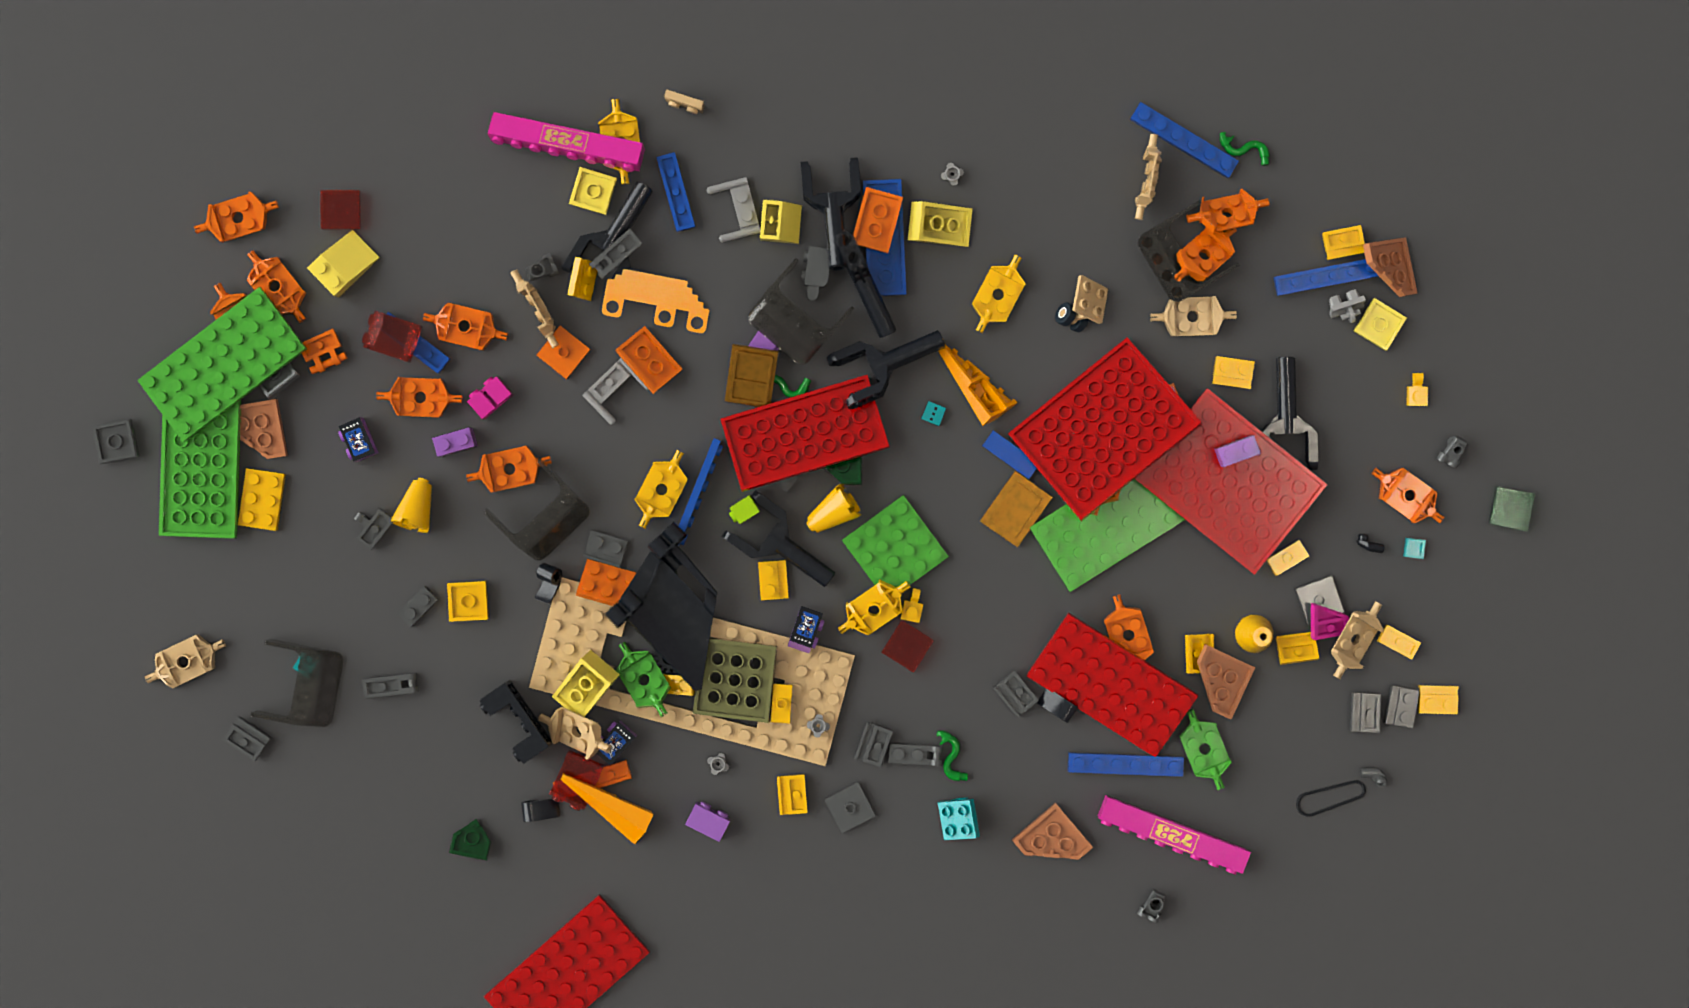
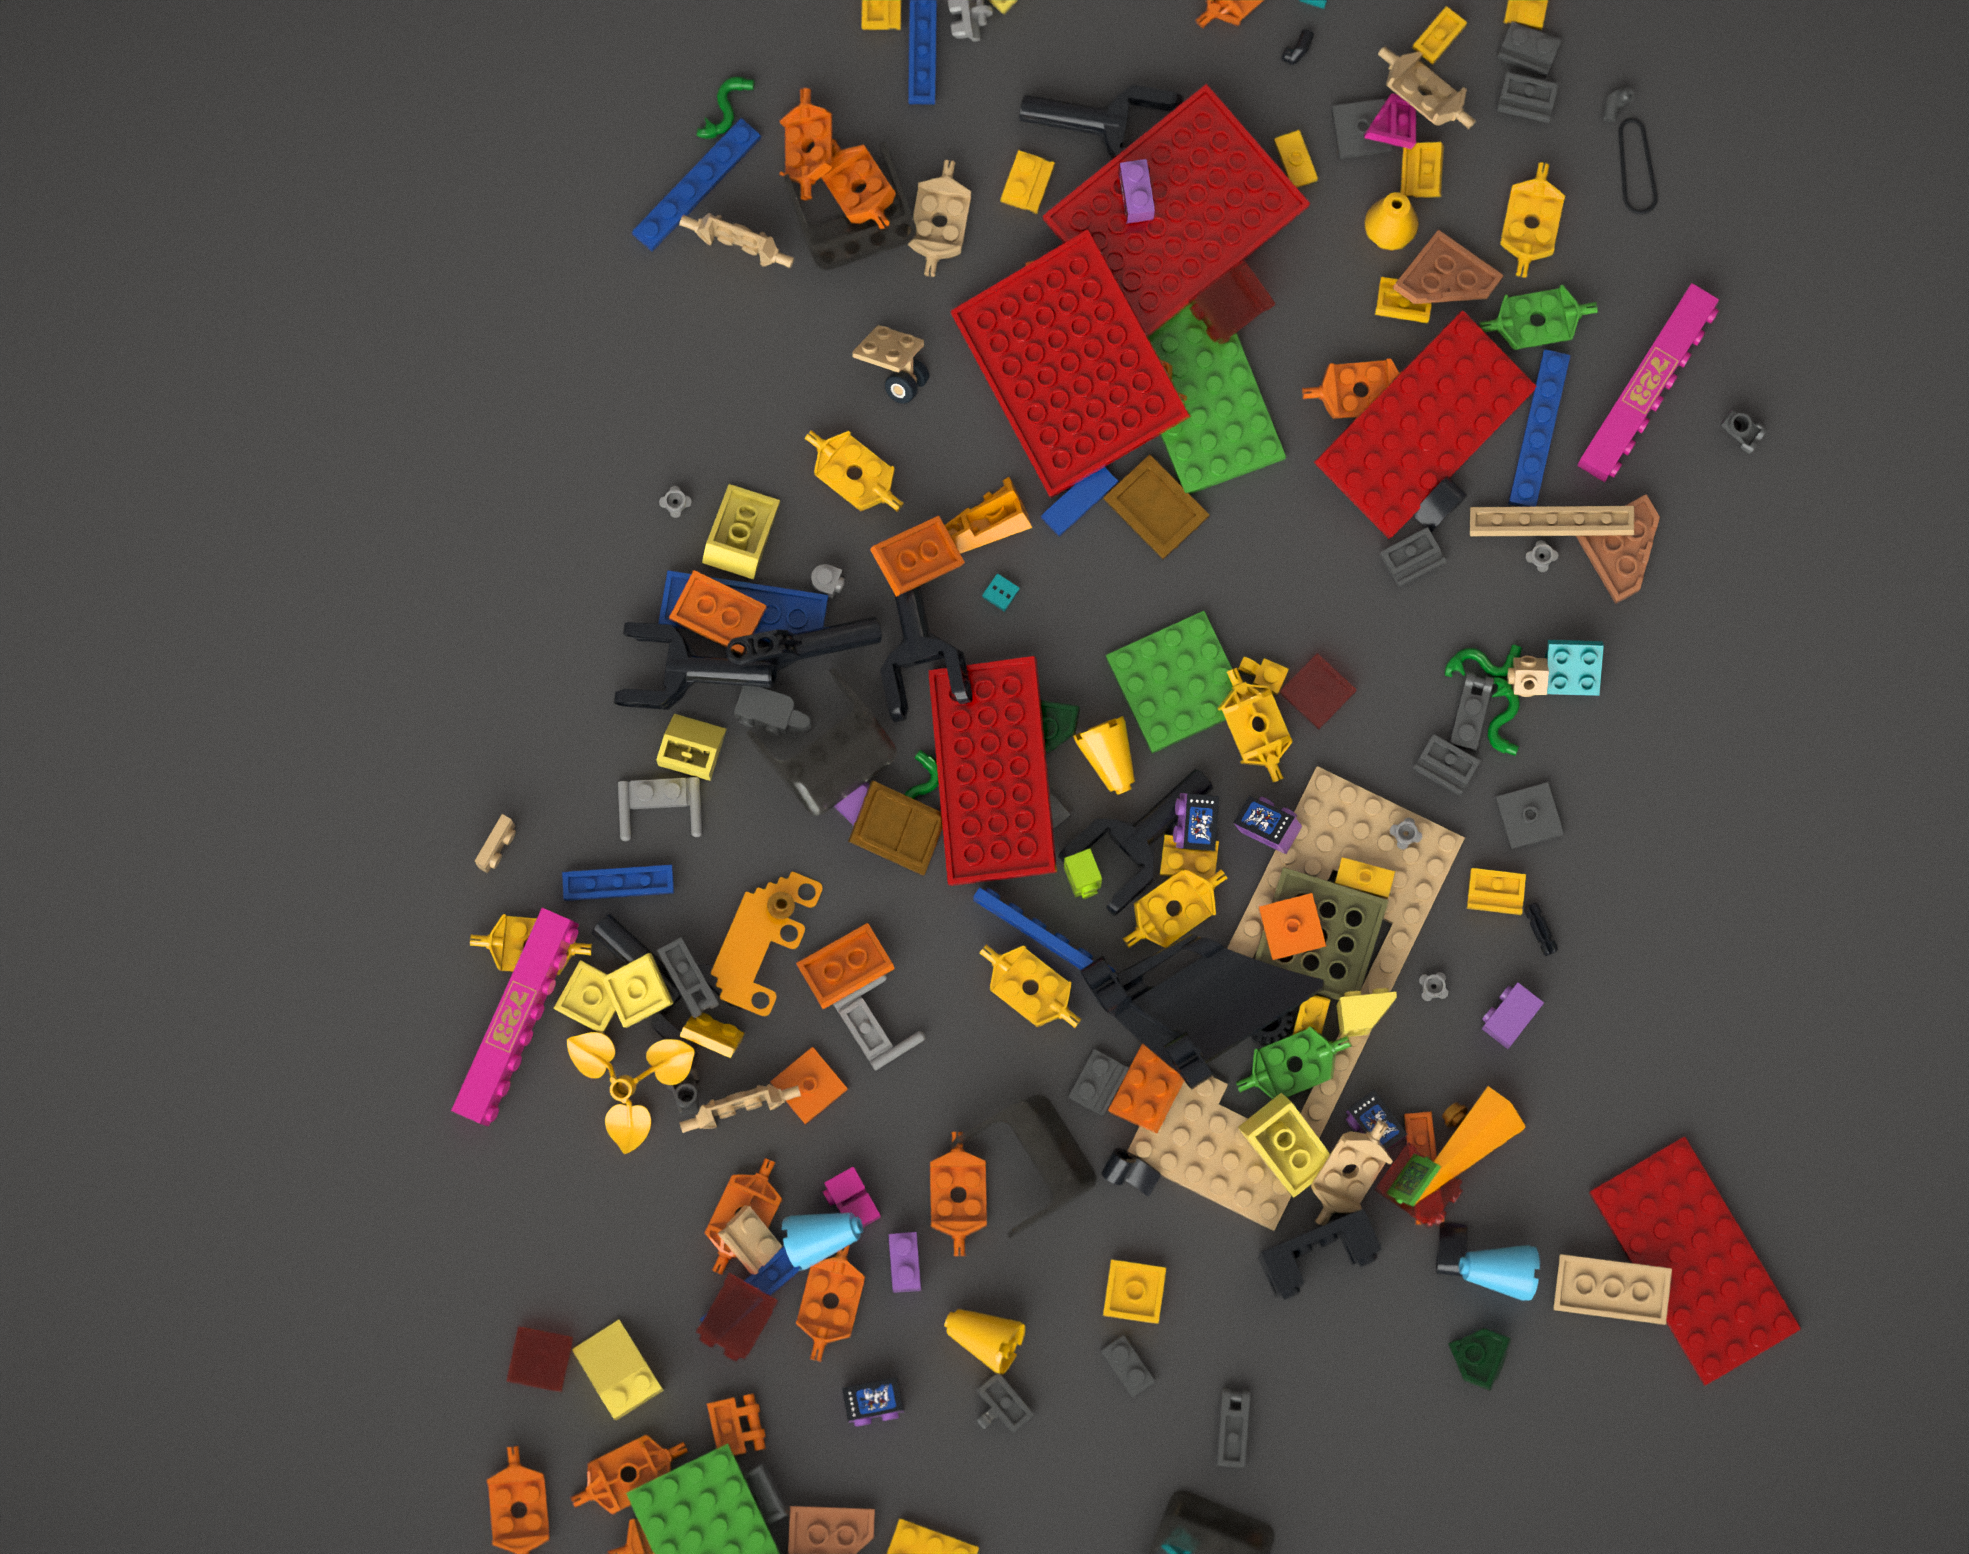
camera: 80 degrees left, 10 degrees down
(447, 334) = (750, 1239): none -> tan plate
(457, 380) = (819, 1236): none -> medium azure cone
(512, 232) = (628, 1123): none -> yellow plant
(529, 849) = (1503, 1270): none -> medium azure cone
(533, 923) = (1612, 1289): none -> tan plate
(576, 777) = (1413, 1179): none -> bright green piece
(601, 221) = (637, 990): none -> light yellow plate
(631, 795) = (1454, 1115): none -> pearl gold plate
(677, 302) = (777, 912): none -> pearl gold plate
(683, 720) = (1361, 1013): none -> light yellow slope
(720, 571) = (1195, 901): none -> yellow plate
(736, 660) = (1292, 926): none -> orange plate
(772, 829) = (1540, 929): none -> black axle
(795, 580) = (1196, 821): none -> brick
(898, 774) = (1497, 742): none -> green animal
(917, 291) = (827, 580): none -> light grey plate
(943, 350) = (917, 555): none -> orange plate
(946, 789) = (1529, 676): none -> tan brick
(1035, 787) = (1549, 556): none -> light grey plate
(1059, 785) = (1552, 521): none -> tan plate
(1171, 532) = (1230, 302): none -> clear red panel
(1290, 737) = (1538, 200): none -> yellow plate

